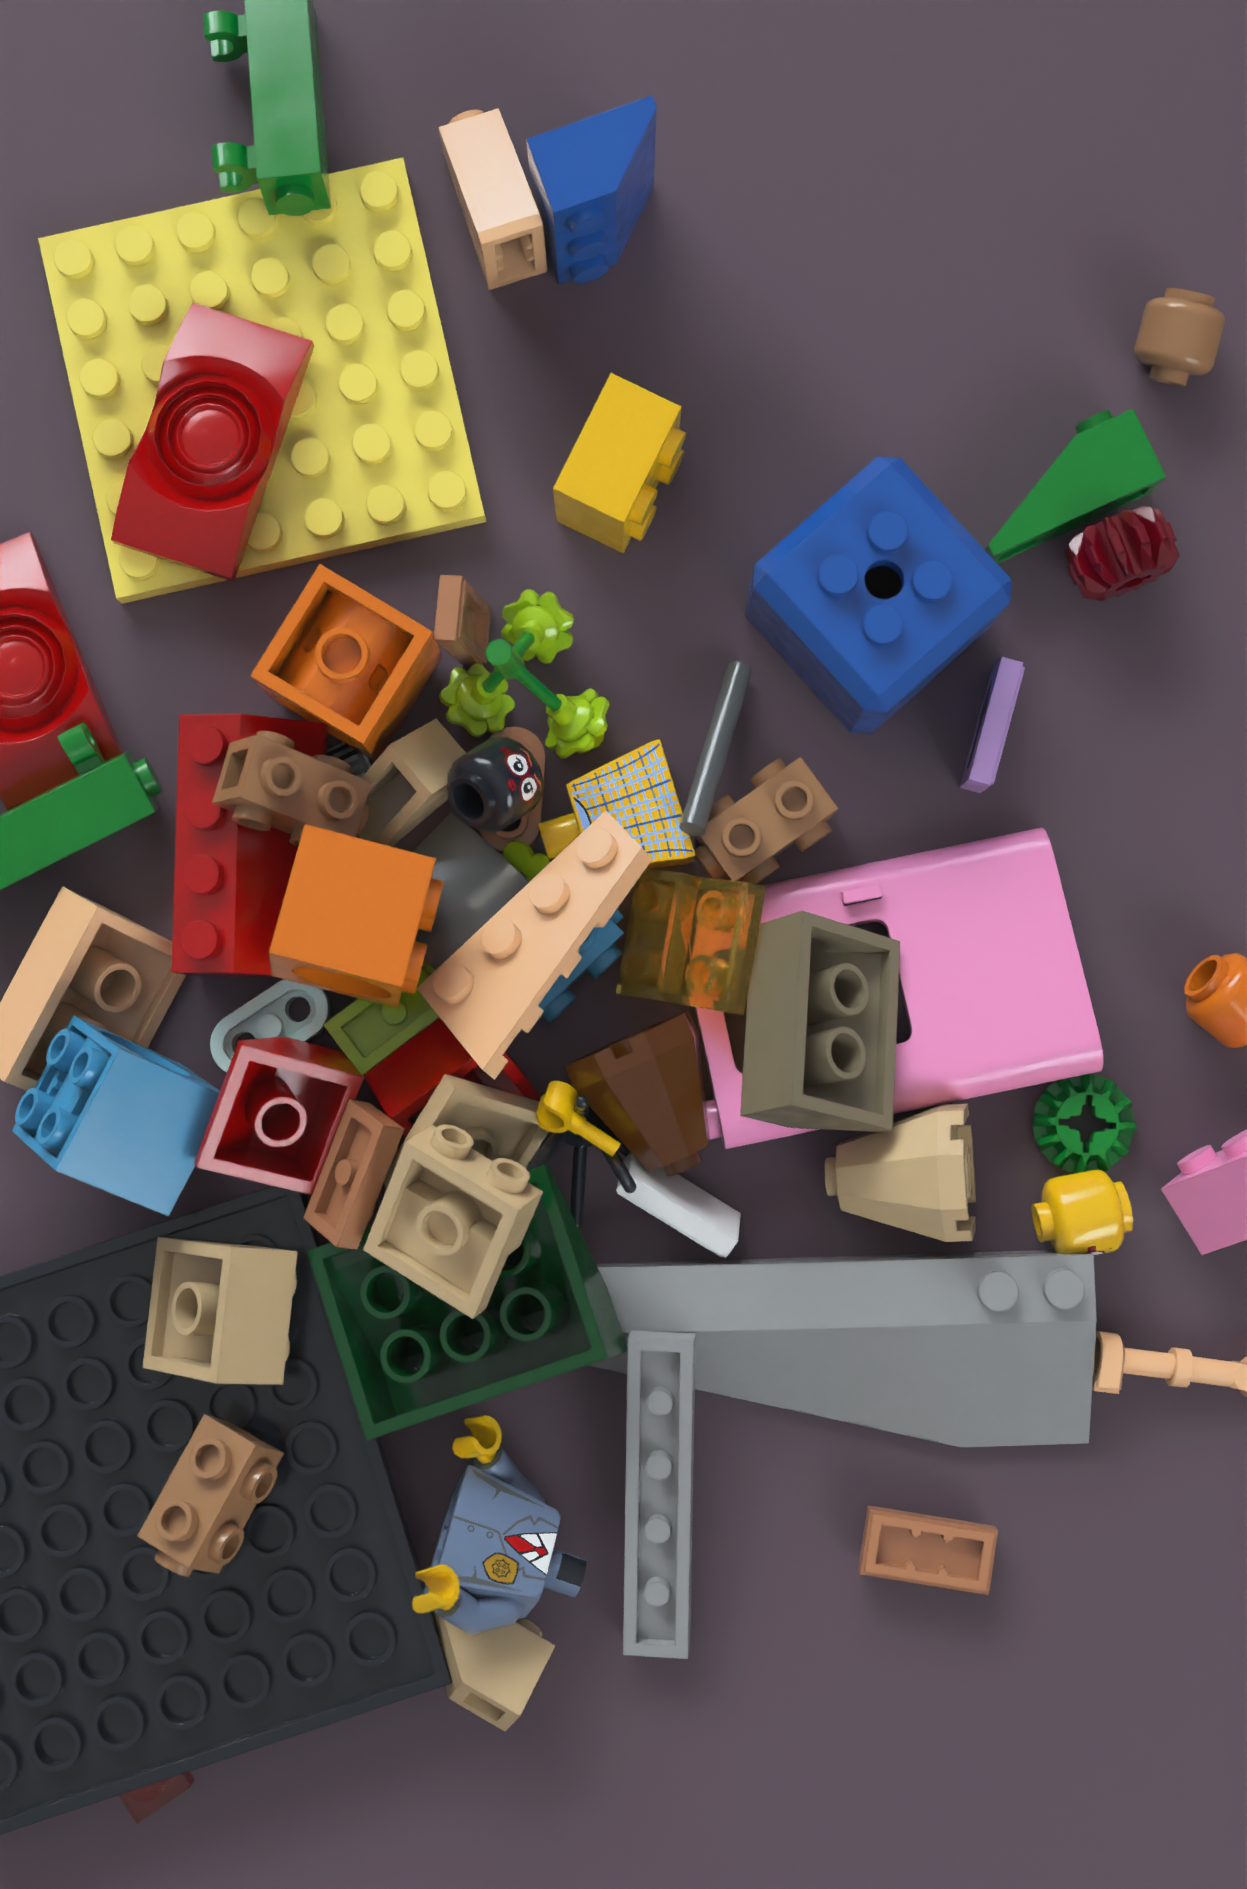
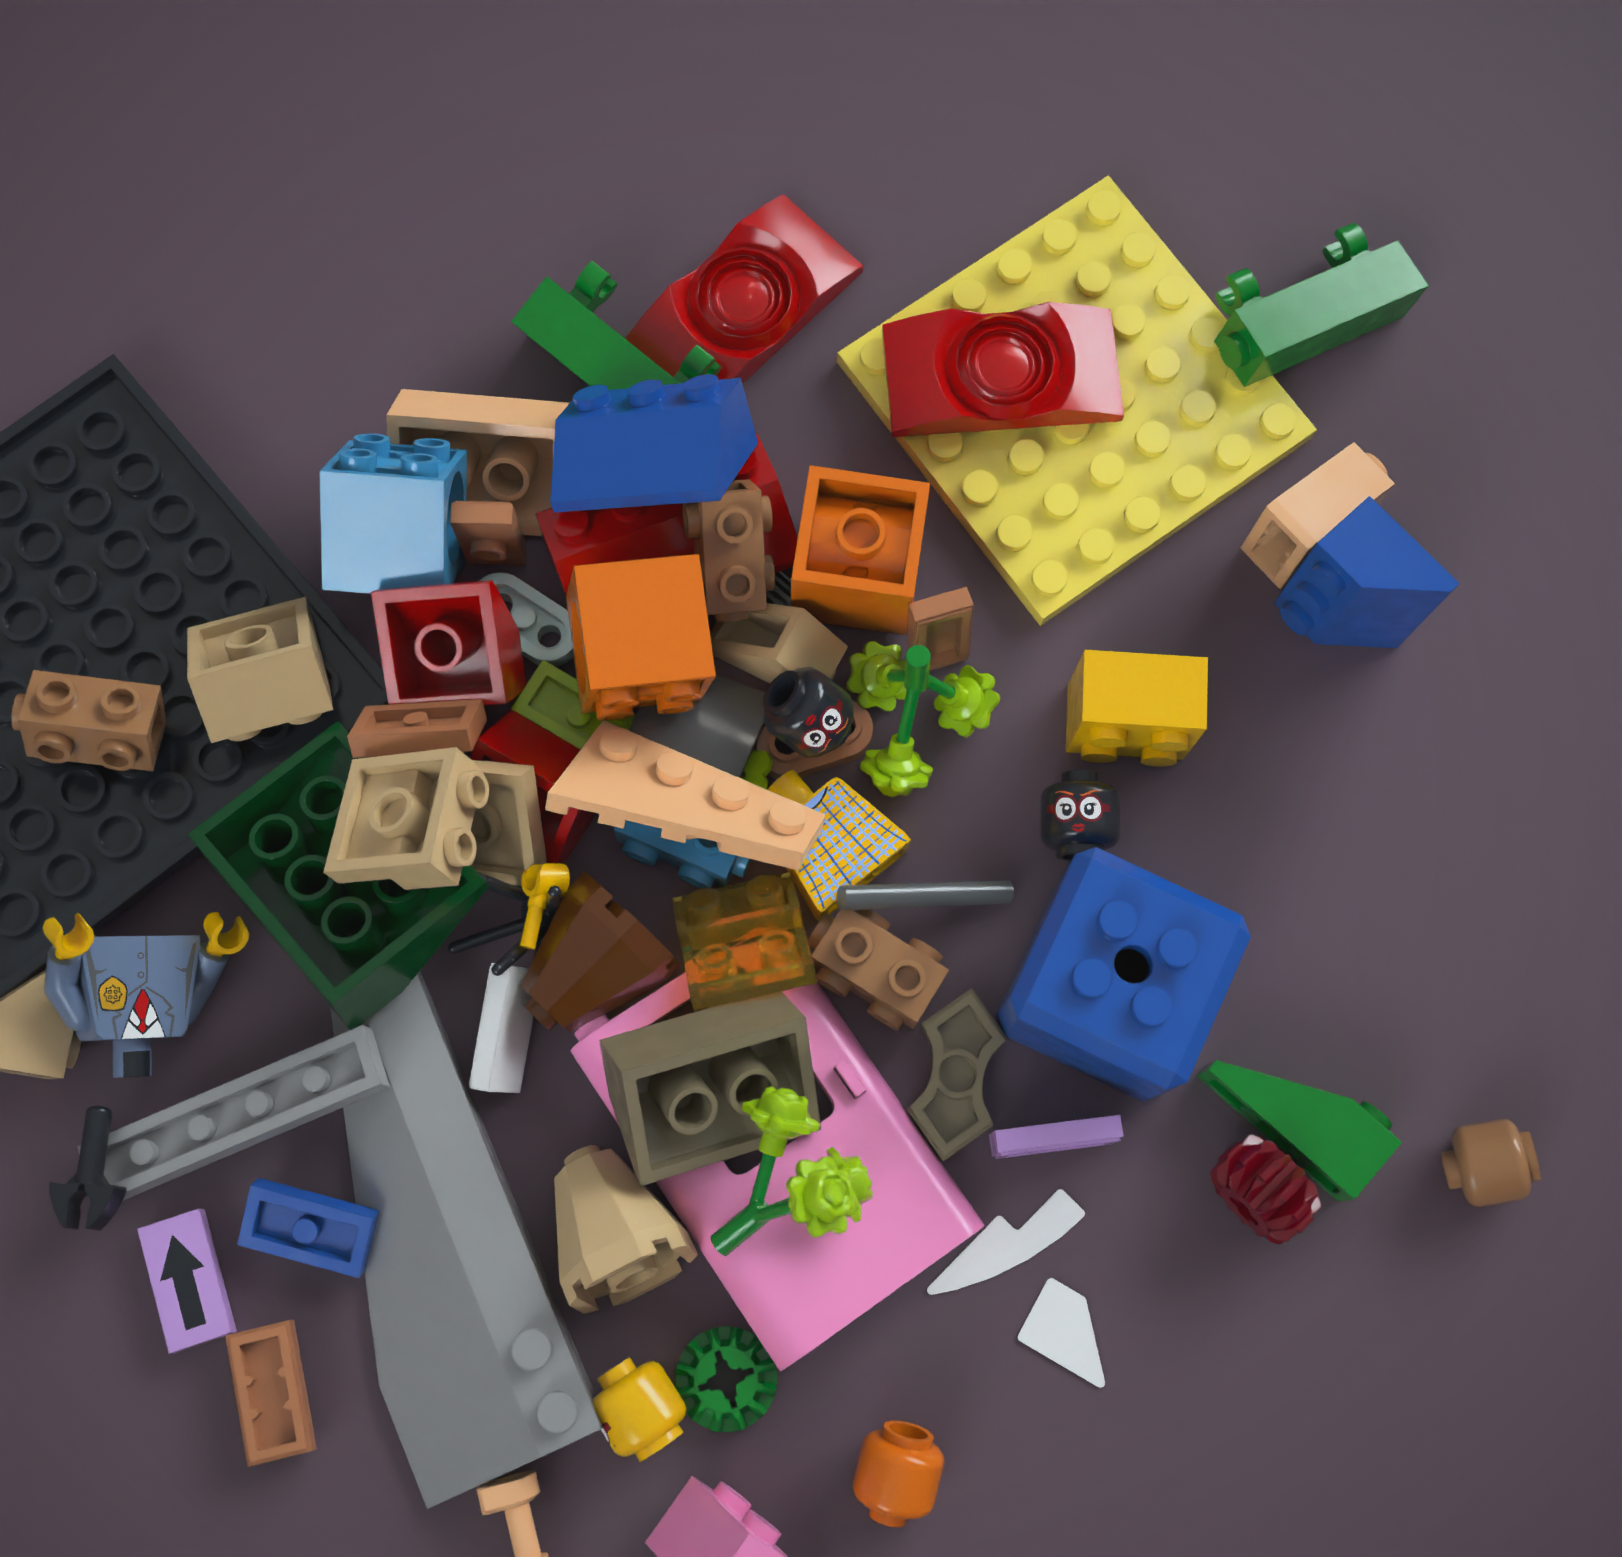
camera: 65 degrees right, 10 degrees down
(158, 826) = (650, 444): none -> blue slope
(171, 1027) = (488, 532): none -> nougat plate
(660, 1652) = (90, 1178): none -> black bar
(699, 567) = (1079, 814): none -> black head
(790, 1460) = (308, 1227): none -> blue plate
(790, 1593) = (186, 1280): none -> lavender tile
(918, 809) = (952, 1104): none -> dark tan tile
(981, 964) = (820, 1192): none -> lime plant
(1068, 816) = (1003, 1247): none -> white sticker
(1164, 796) = (1063, 1331): none -> white sticker

